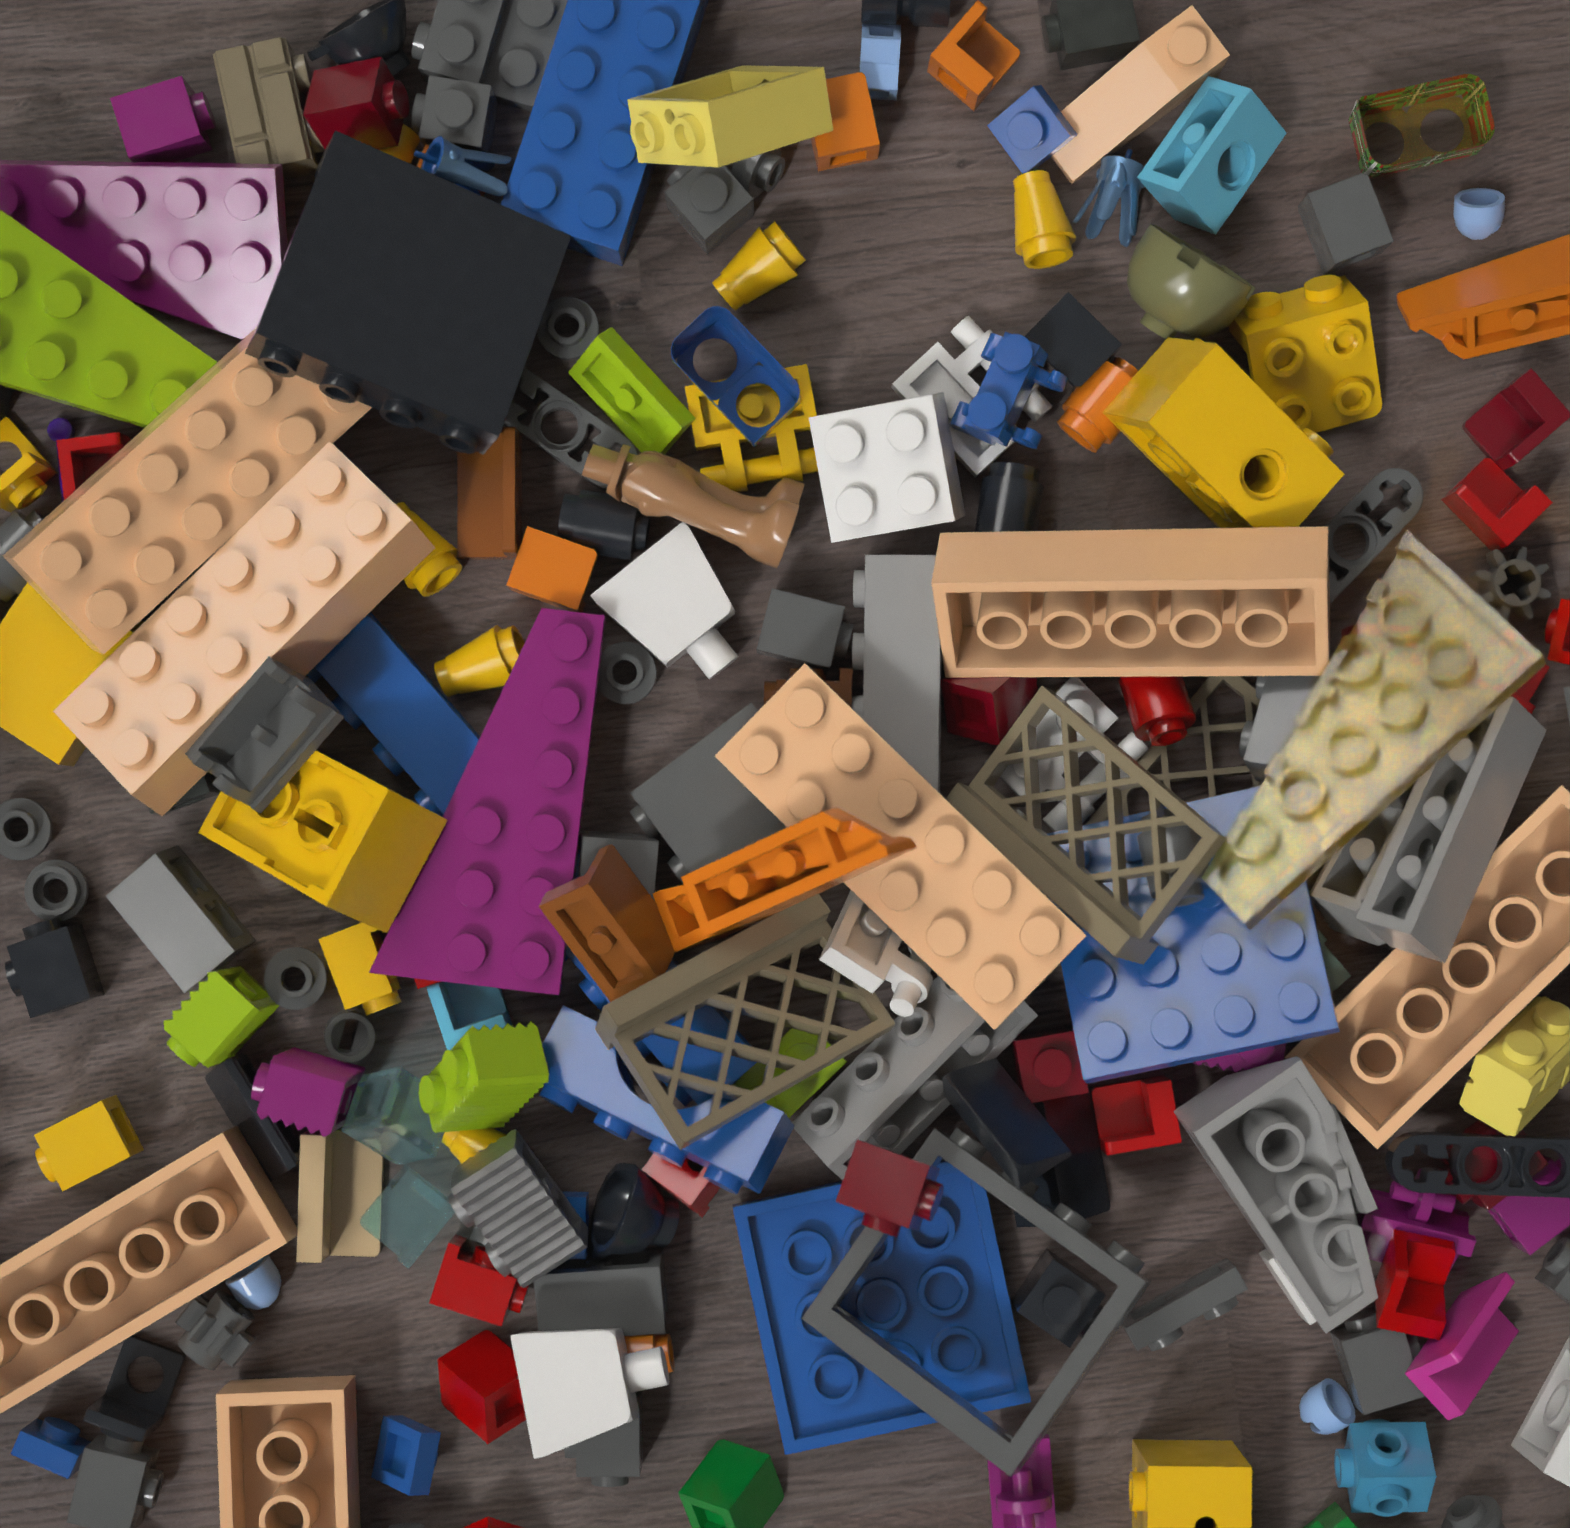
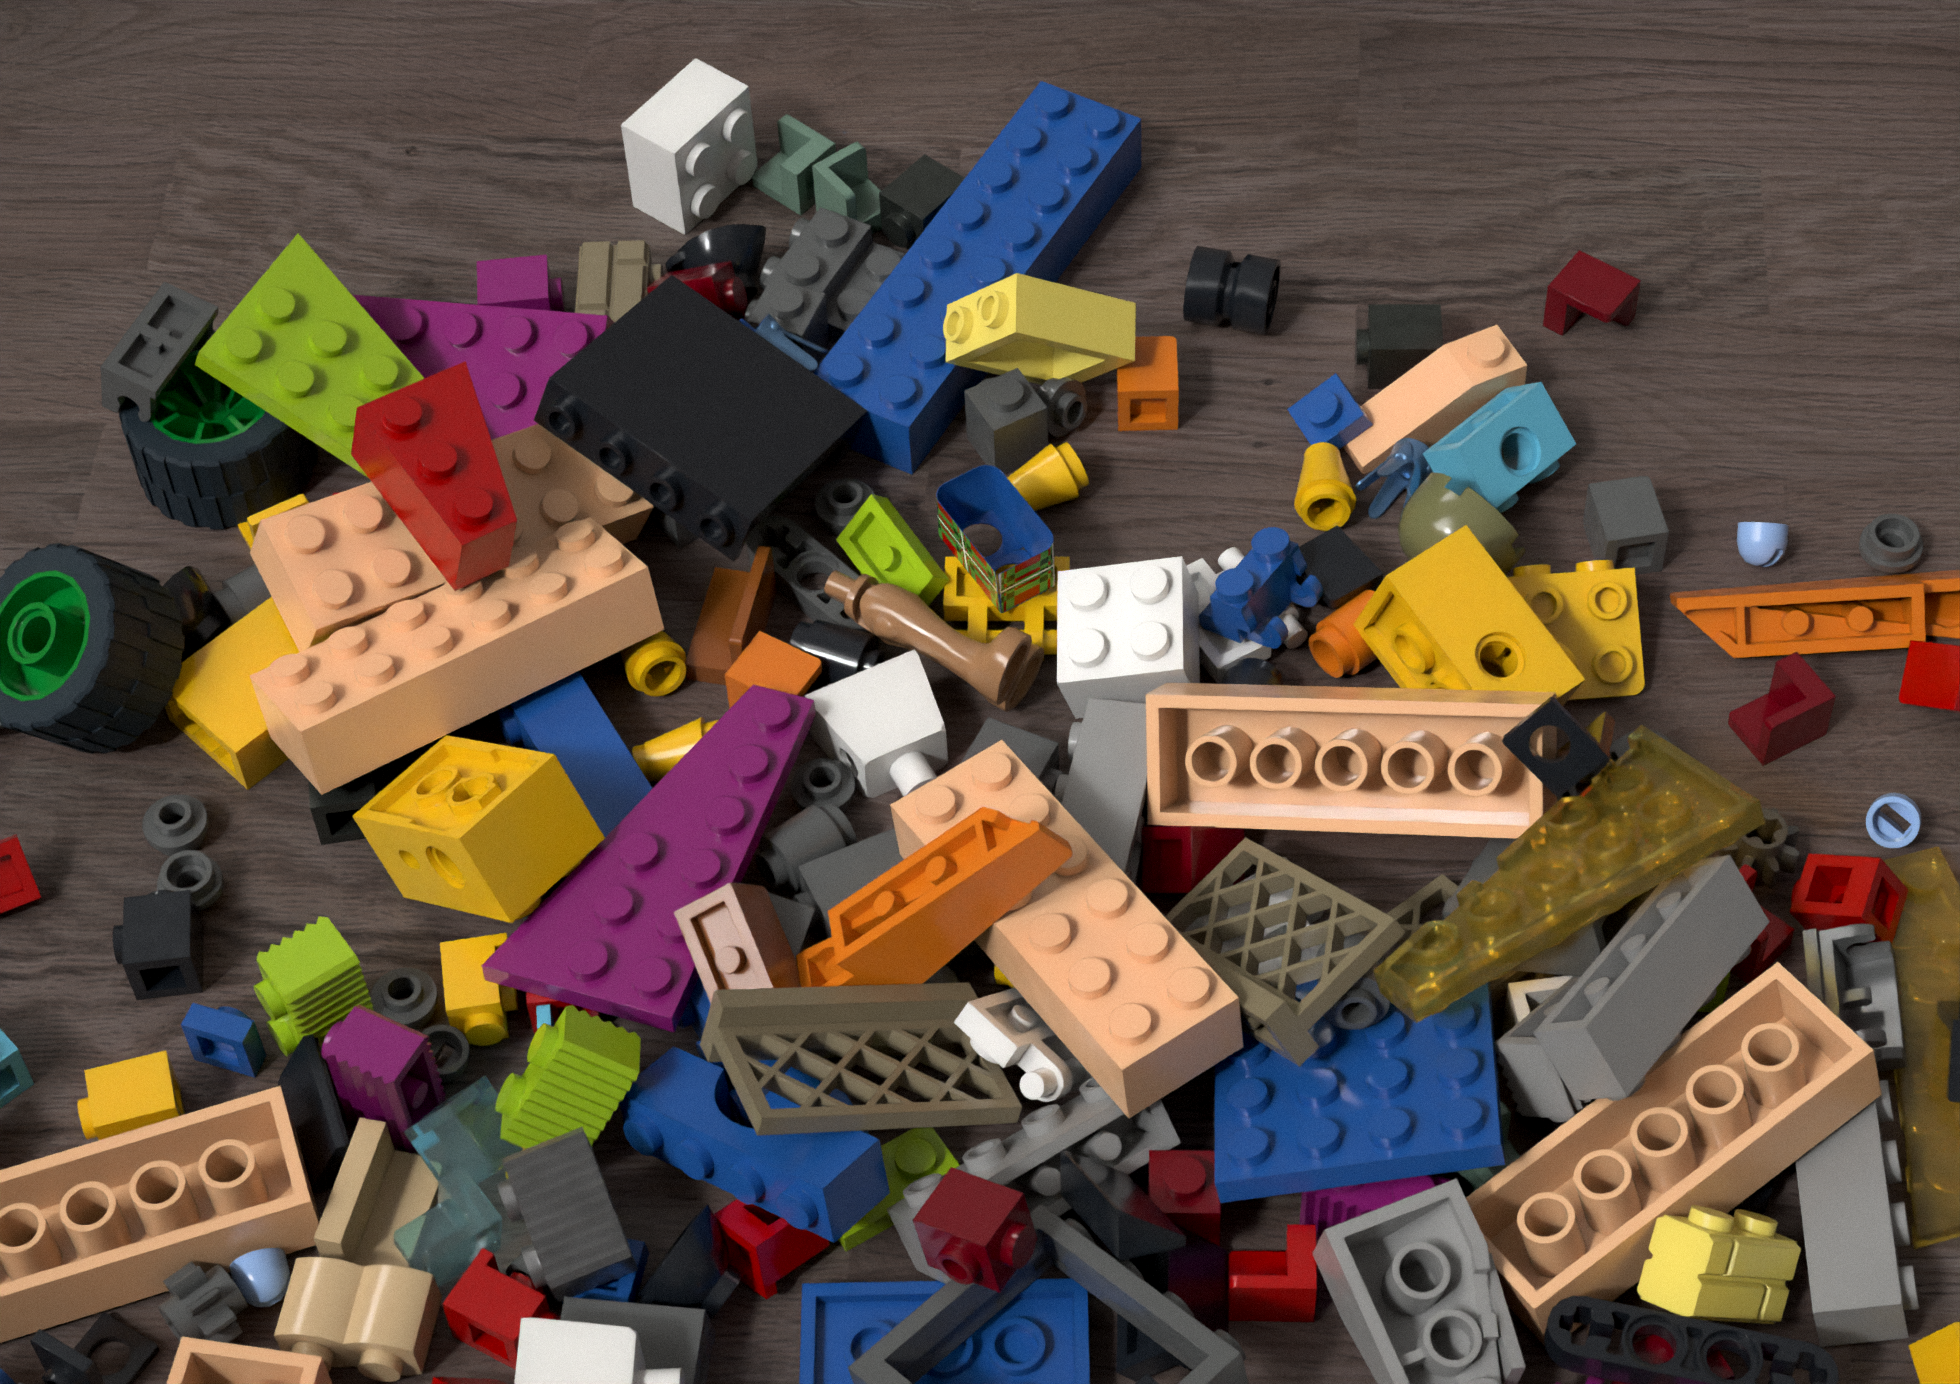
camera: 15 degrees right, 35 degrees down
(144, 1056) = (224, 1039): none -> blue plate
(178, 469) = (440, 473): none -> red wedge
(180, 917) = (295, 892): hinge -> none
(265, 734) = (447, 717): dark grey hinge -> none
(353, 1311) = (360, 1316): none -> tan brick
(627, 750) = (800, 840): none -> dark grey brick
(880, 59) = (1196, 350): light blue piece -> none
(972, 57) = (1279, 358): orange panel -> none
(1158, 708) = (1368, 872): red brick -> none
(1358, 599) = (1576, 760): none -> black bracket
(1388, 108) = (1681, 440): clear yellow piece -> none
(1494, 504) = (1772, 782): red panel -> none

